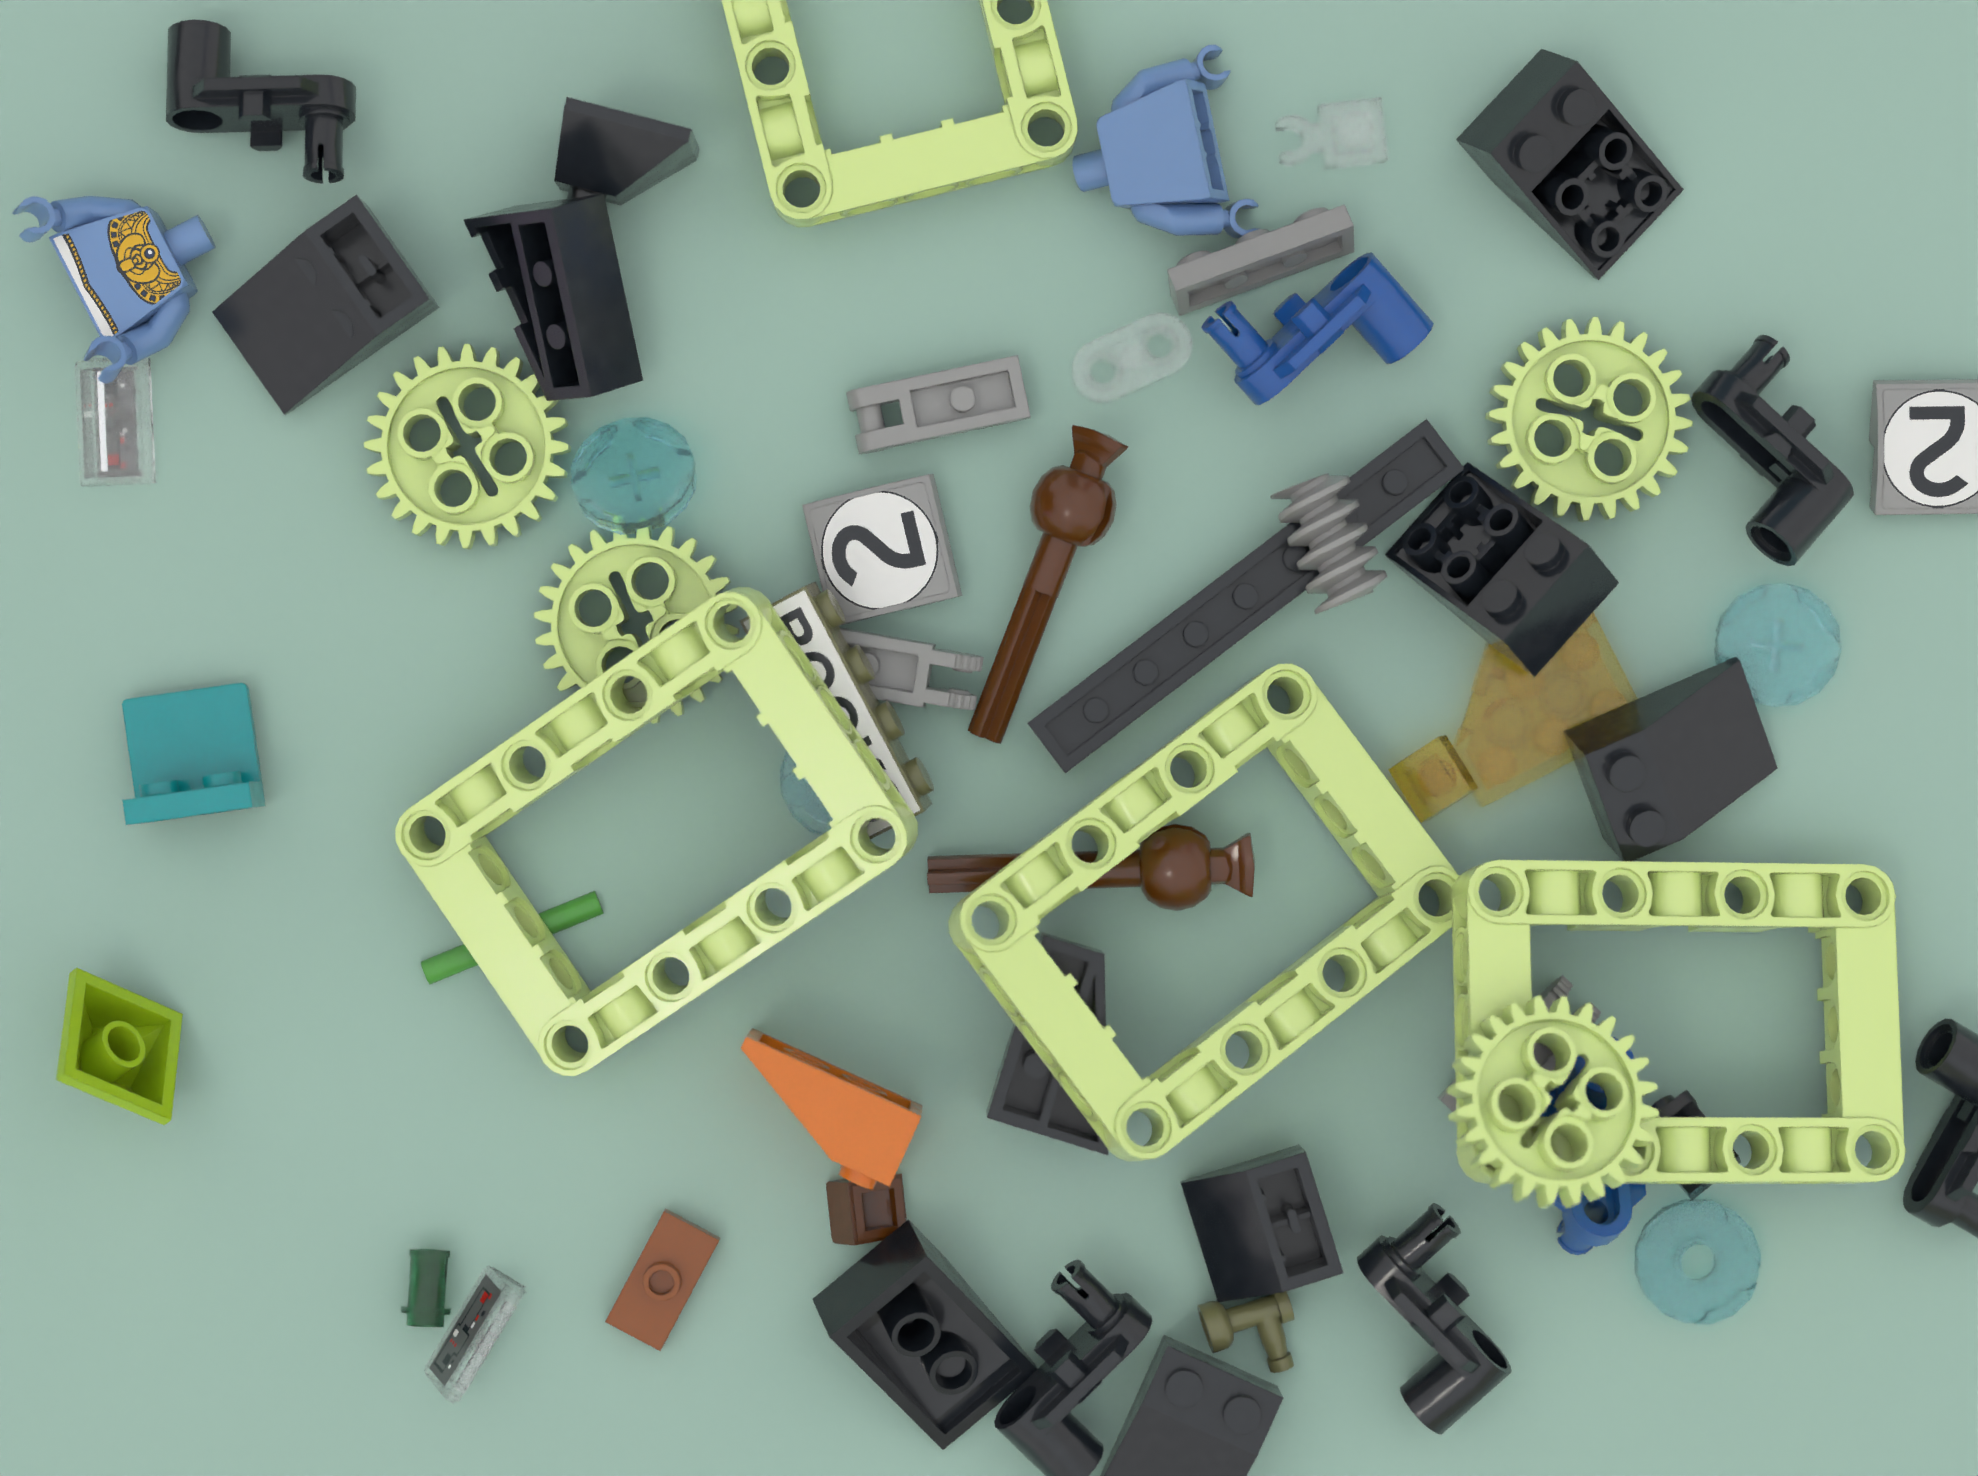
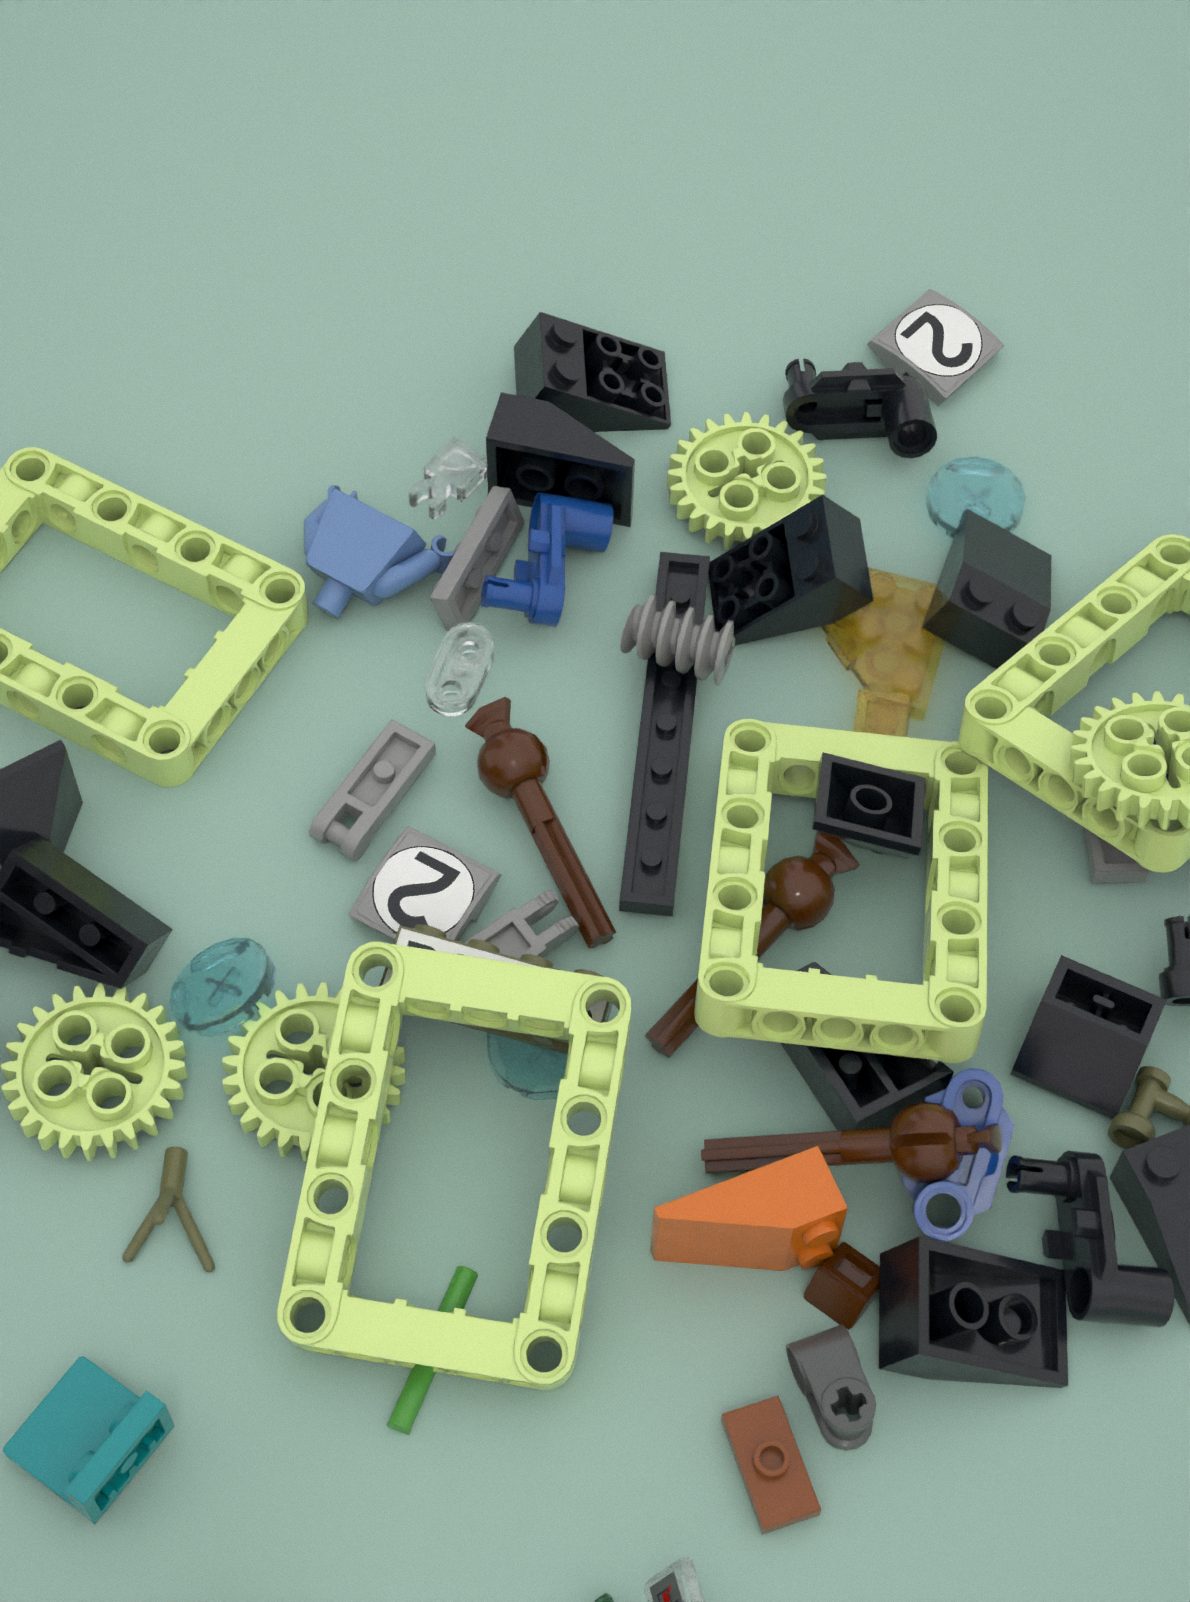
camera: 50 degrees left, 30 degrees down
(415, 618) = (171, 1196): none -> olive plant
(770, 1267) = (832, 1378): none -> dark grey piece
(1012, 1188) = (921, 1142): none -> reddish brown piece
(1042, 1215) = (978, 1174): none -> piece
(1303, 867) = (870, 806): none -> black slope
(1421, 224) = (549, 452): none -> black slope

